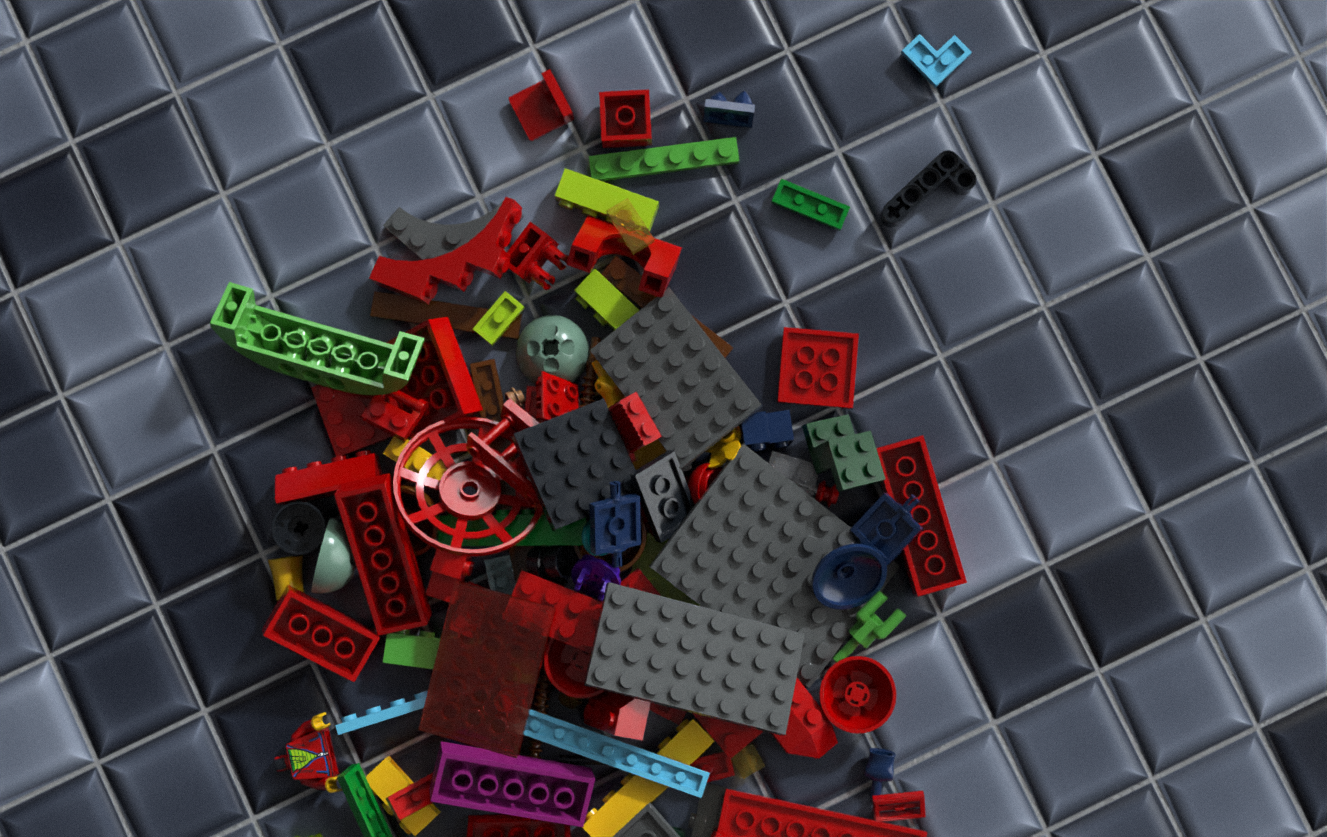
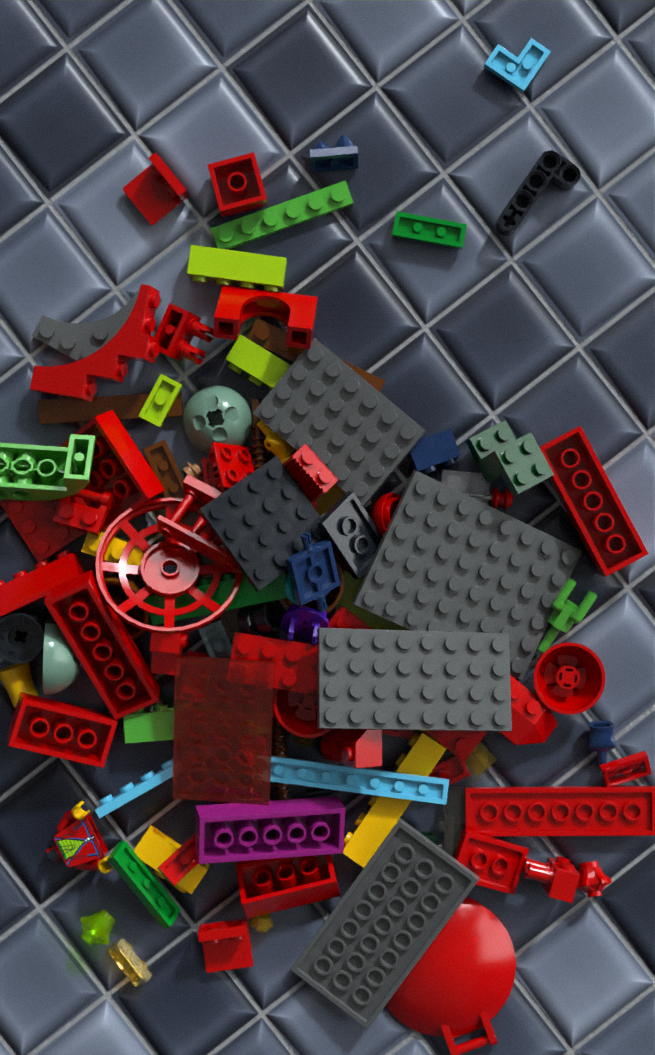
camera: 20 degrees left, 5 degrees up
(630, 226) = (265, 287): clear yellow plate -> none
(725, 448) = (400, 478): yellow plate -> none
(818, 368) = (468, 383): red plate -> none
(849, 576) = (539, 572): dark blue dish -> none
(888, 526) = (564, 520): dark blue plate -> none

